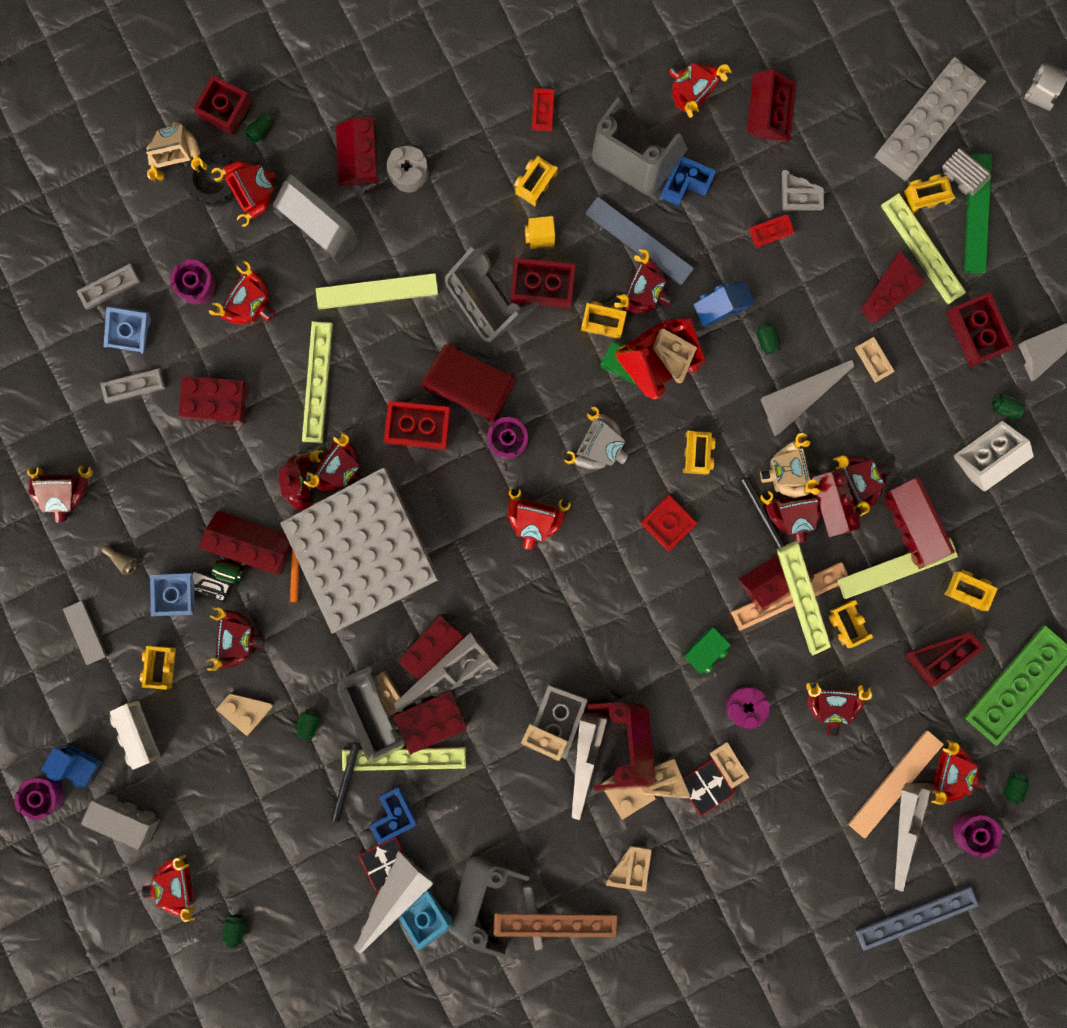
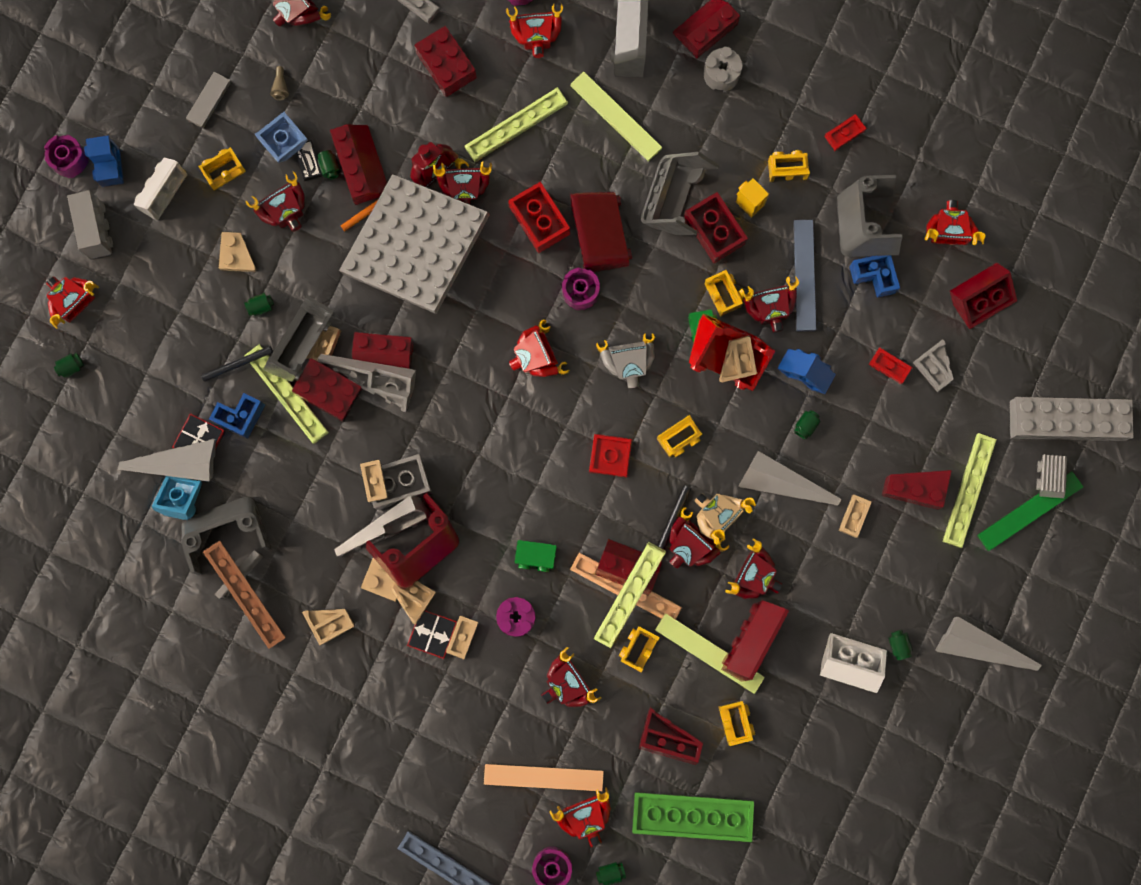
camera: 55 degrees right, 5 degrees down
(836, 503) = (721, 565): slope -> none
(912, 811) = (522, 810): wedge -> none
(930, 201) = (1009, 466): yellow window -> none
(980, 329) = (941, 577): dark red brick -> none

